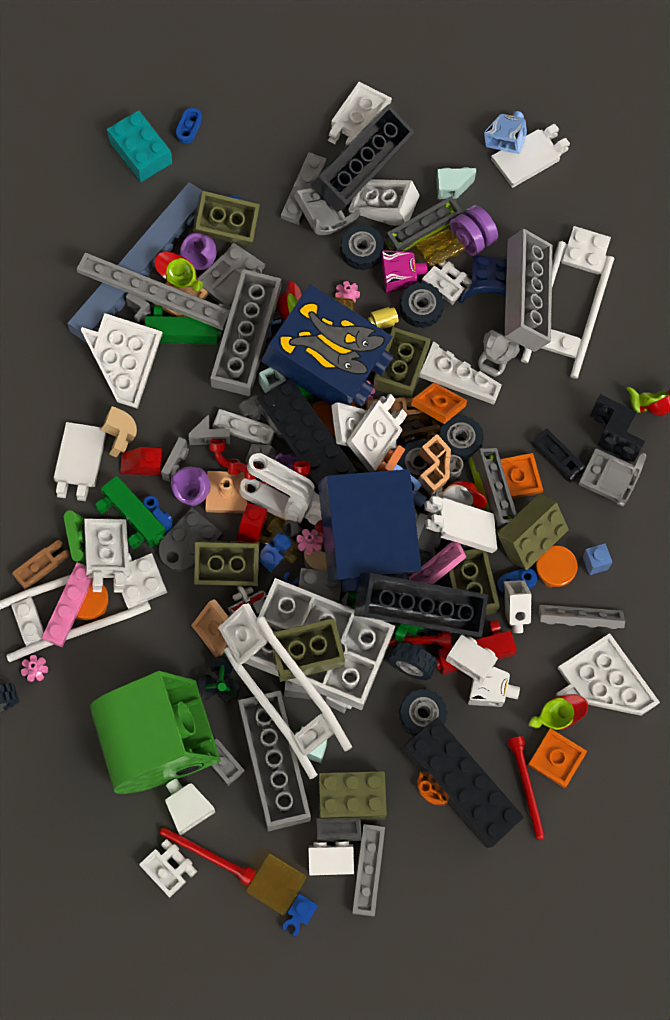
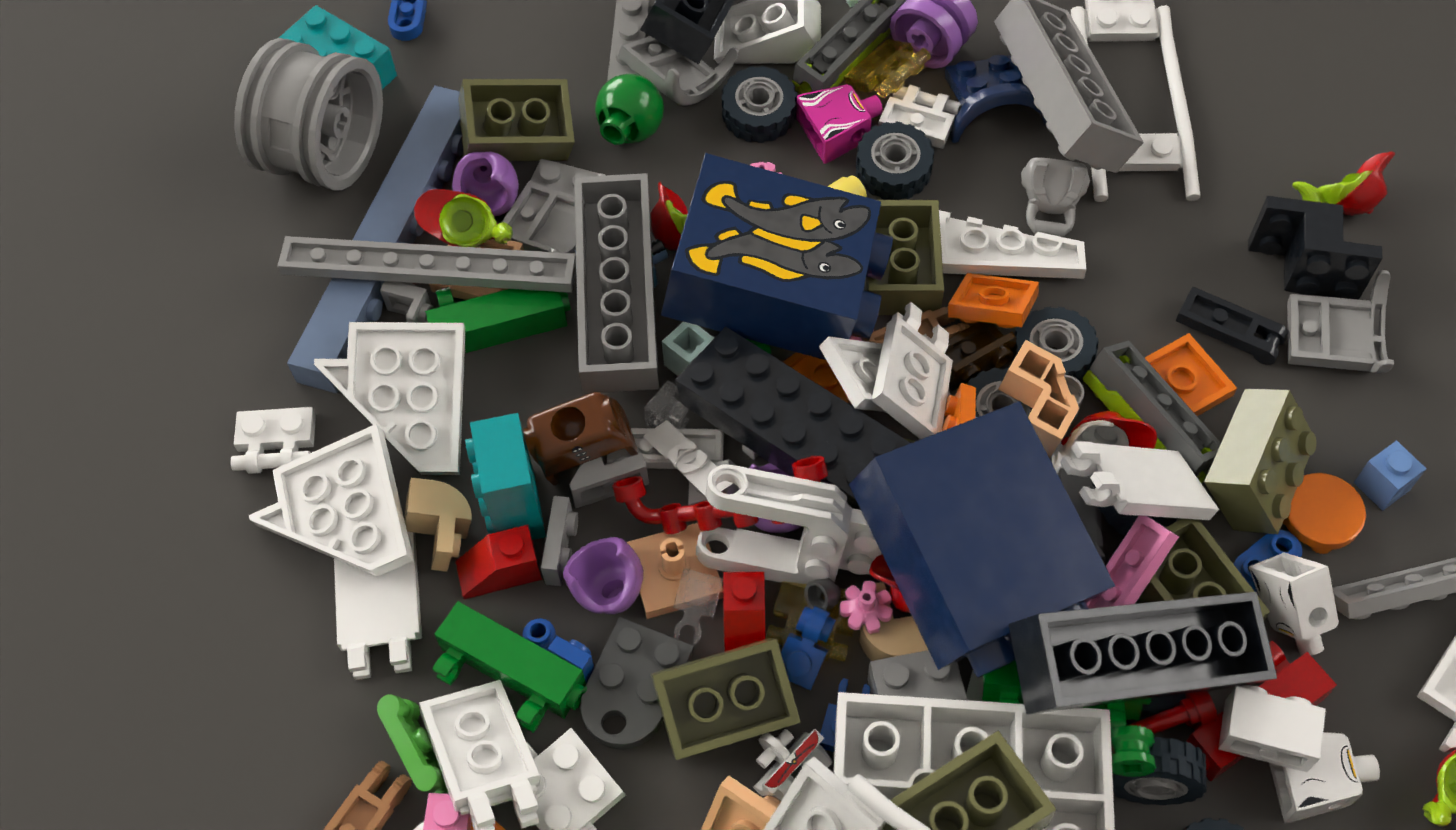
camera: 10 degrees left, 10 degrees down
(50, 355) = (272, 430): none -> white plate
(75, 407) = (342, 504): none -> white wing
(116, 184) = (308, 113): none -> light grey wheel
(157, 421) = (504, 475): none -> teal brick
(201, 410) = (577, 433): none -> reddish brown piece
(232, 510) = (697, 597): none -> clear plate
(250, 435) = (683, 455): none -> white piece
(288, 230) = (628, 109): none -> green brick
(398, 647) = (1132, 751): none -> green wheel

